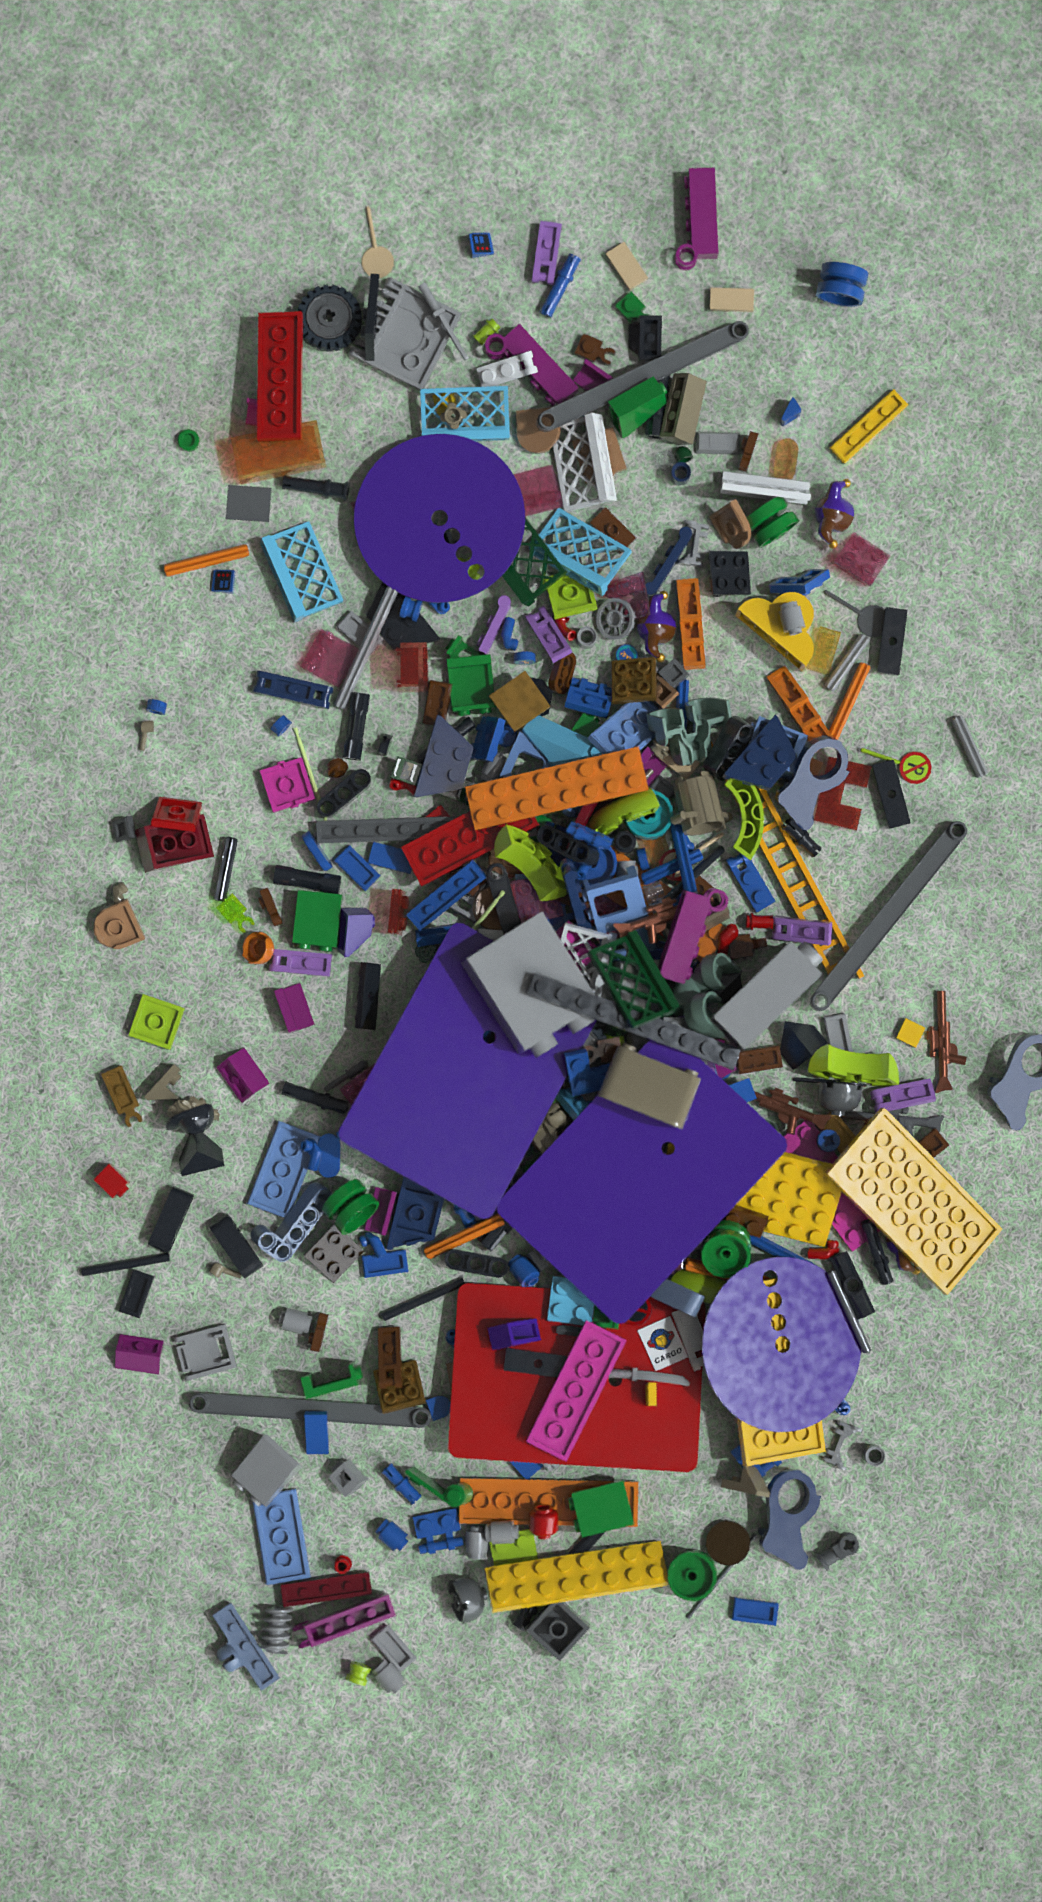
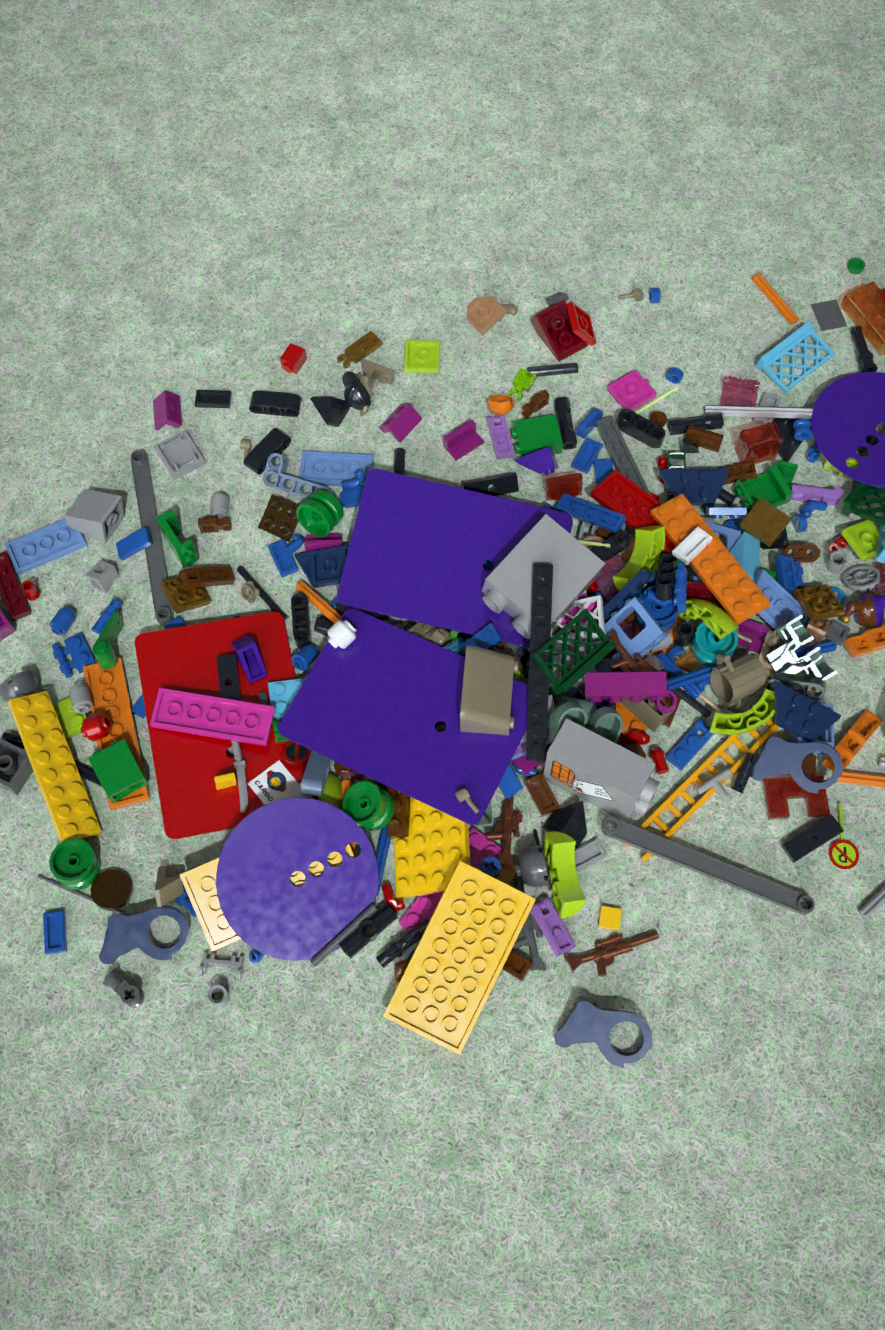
camera: 75 degrees right, 20 degrees down
(125, 1264) = (233, 386): black bar -> none
(223, 581) = (765, 314): slope -> none
(292, 689) = (705, 376): dark blue plate -> none
(380, 725) = (704, 438): none -> reddish brown plate
(420, 1312) = (249, 592): none -> dark tan plate
(476, 1542) = (64, 684): light grey brick -> none
(531, 1225) = (341, 634): none -> white head
(541, 803) = (692, 545): none -> white tile
(548, 634) = (826, 531): medium lavender plate -> none
(755, 1148) = (463, 795): none -> dark tan hand
(802, 930) = (667, 795): medium lavender plate -> none
(804, 874) = (715, 783): none -> light grey piece

